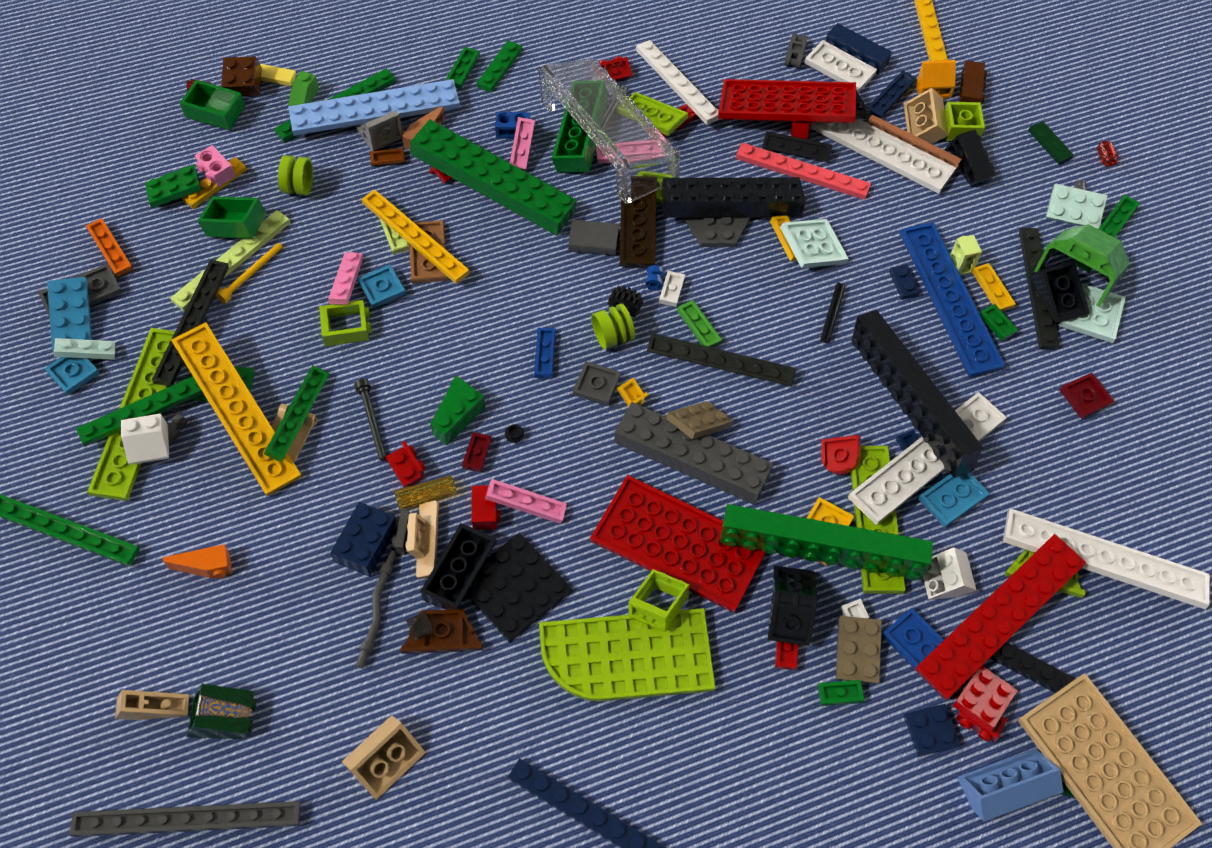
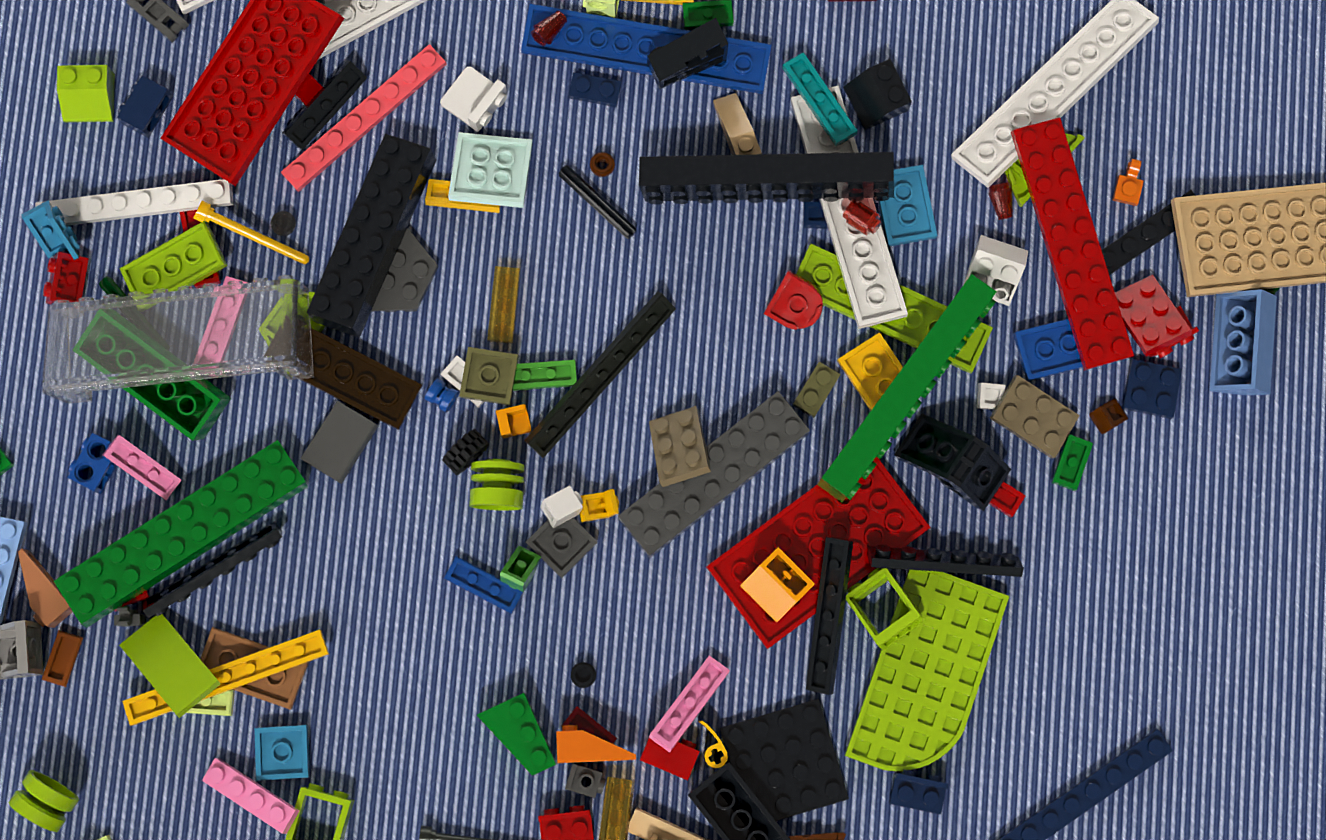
camera: 65 degrees left, 20 degrees up
(408, 203) = (169, 665): none -> lime tile
(427, 175) = (128, 617): none -> dark grey plate
(442, 462) = (574, 781): none -> dark grey brick
(464, 448) = (581, 746): none -> orange slope
(484, 209) = (204, 575): none -> black plate
(502, 534) = (719, 746): none -> yellow panel
(536, 689) = (918, 792): none -> dark blue bracket
(565, 361) = (520, 568): none -> bright green slope
(620, 368) = (562, 506): none -> white brick
(634, 565) = (829, 615): none -> black plate
(637, 48) = (50, 230): none -> dark azure bracket
(638, 519) = (777, 584): none -> light orange slope
(661, 322) = (513, 421): none -> light orange panel
(681, 293) = (489, 376): none -> olive plate
(692, 109) = (207, 214): none -> yellow piece
(711, 156) = (283, 223): none -> clear smoke plate
(718, 634) = (945, 561): none -> black plate
(728, 36) = (86, 93): none -> lime slope
(733, 288) = (504, 304): none -> clear yellow plate
(737, 65) = (144, 106): none -> dark blue brick
(789, 496) = (816, 389): none -> olive plate
(853, 219) = (474, 98): none -> white bracket
(859, 300) = (602, 157): none -> reddish brown plate
(891, 706) = (1108, 416): none -> reddish brown slope
(924, 234) = (547, 29): none -> clear red cone
(925, 462) = (862, 218): none -> clear red brick
(939, 366) = (736, 126): none -> tan slope
(963, 315) = (688, 54): none -> black wedge
(989, 406) = (819, 99): none -> teal plate
(1002, 556) = (1001, 200): none -> clear red cone
(1018, 445) = (877, 95): none -> black slope
(1070, 646) = (1128, 187): none -> orange plate

